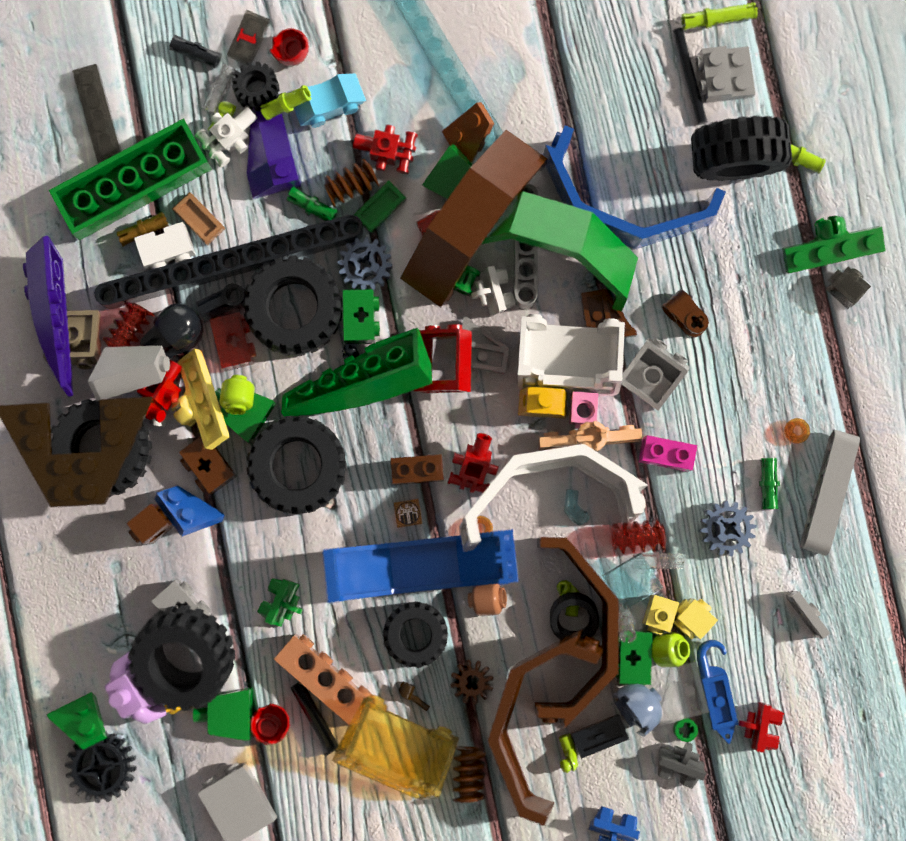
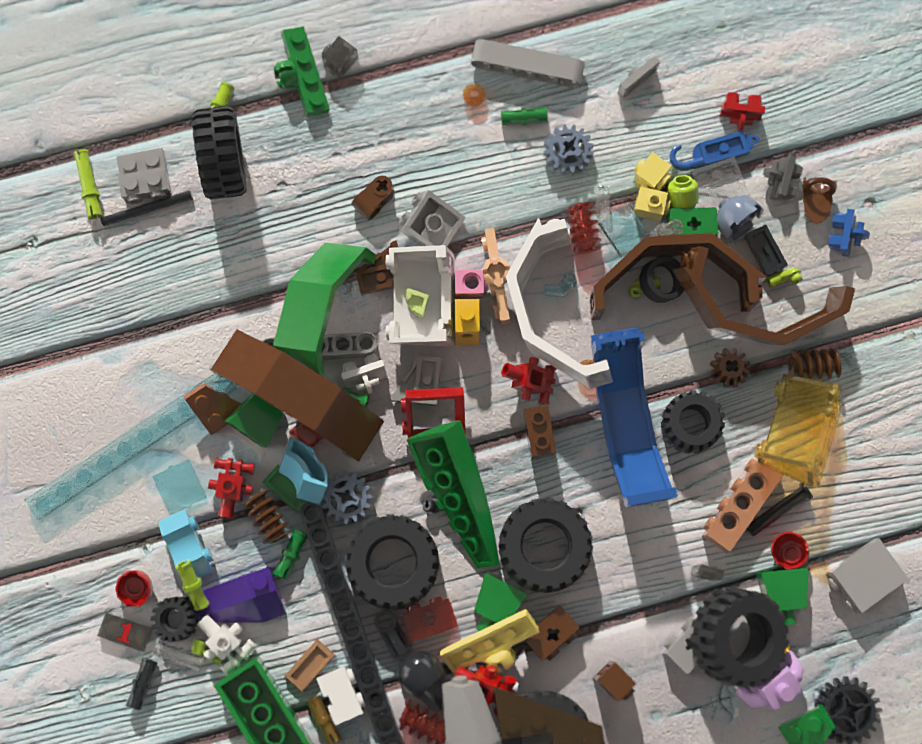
camera: 90 degrees left, 5 degrees down
(187, 511) = (597, 649): blue wing -> none
(237, 395) = (484, 606): lime head -> none
(253, 632) = (707, 572): none -> clear smoke tile
(284, 602) = (684, 554): green hips -> none
(353, 303) = (409, 504): green brick -> none
(391, 98) = (179, 486): none -> clear light blue piece
(394, 222) = (304, 471): none -> medium azure brick
(406, 691) = (743, 428): dark brown hand -> none
(407, 513) = (579, 439): clear orange tile -> none
(487, 599) = (654, 359): nougat head -> none
(566, 350) = (416, 302): none -> yellowish green tile
(628, 233) = (272, 307): blue panel -> none
(654, 801) = (818, 198): none -> reddish brown piece
(667, 453) = (505, 205): dark pink brick -> none
(691, 735) = (755, 172): green bush -> none

